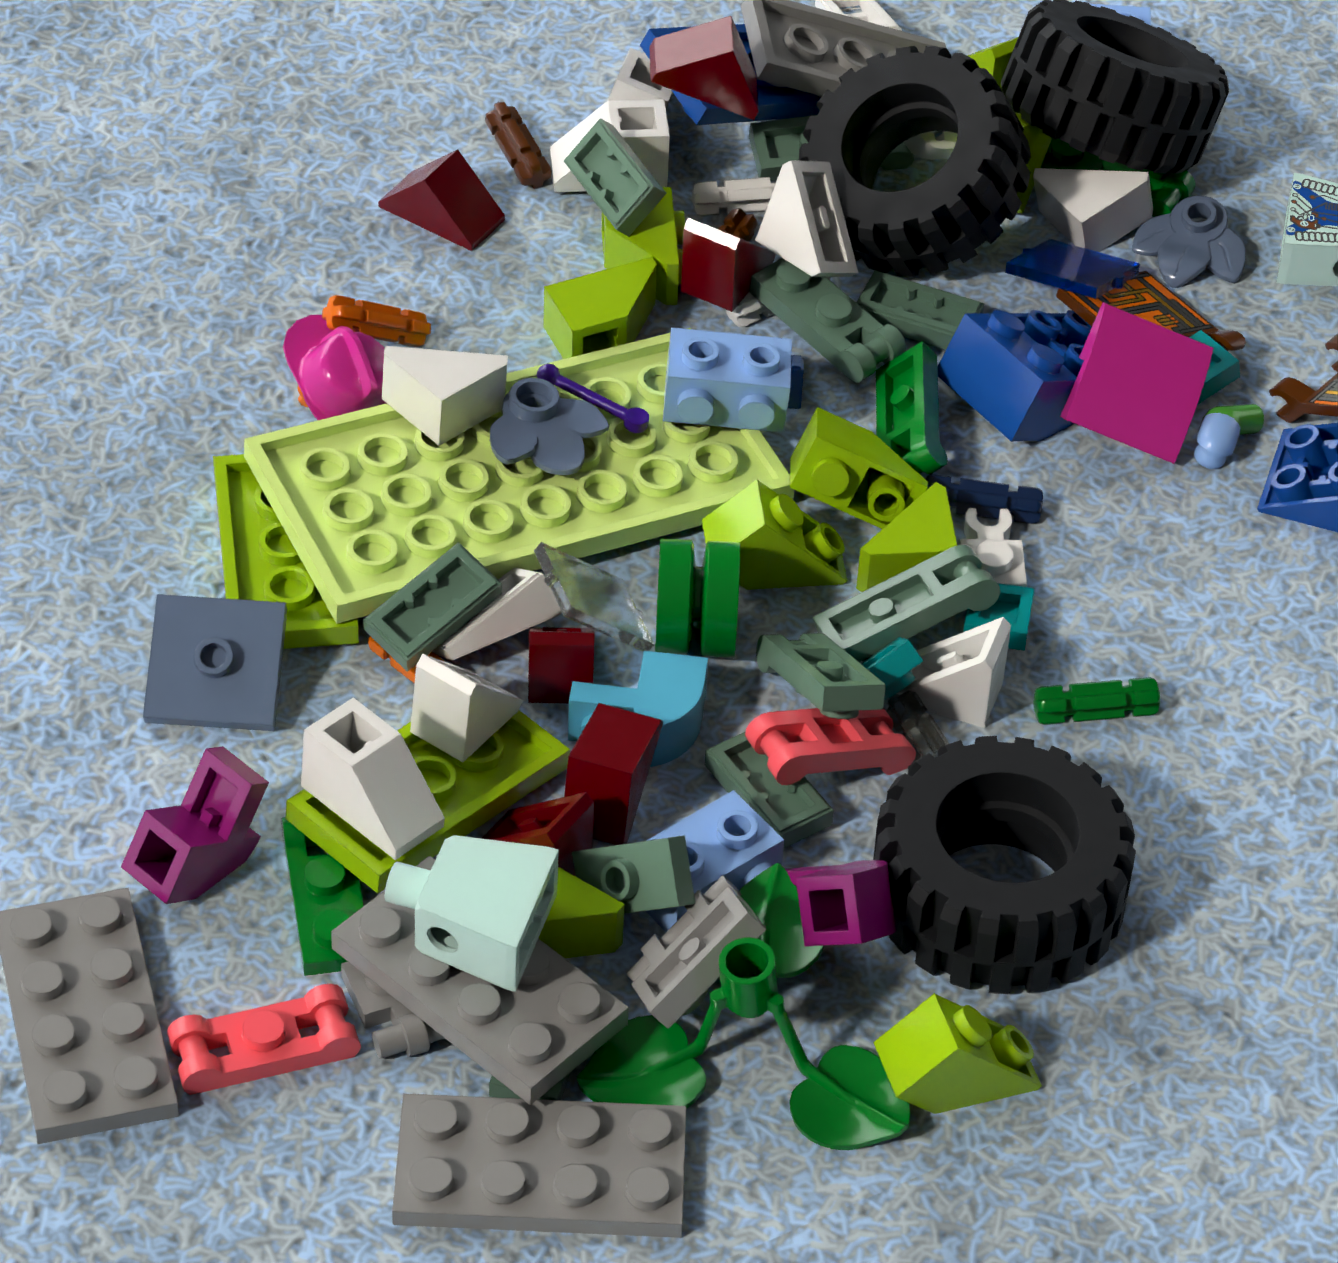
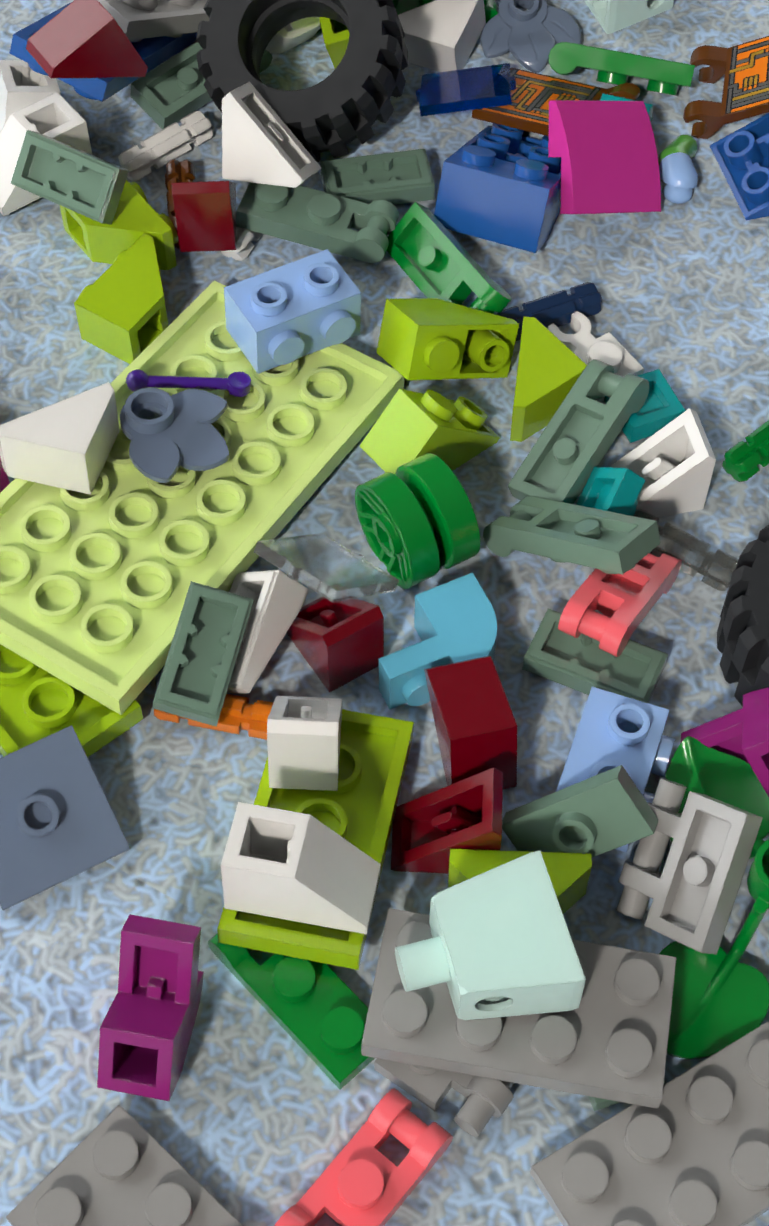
camera: 30 degrees left, 10 degrees up
(1245, 314) = (617, 66): none -> green plate

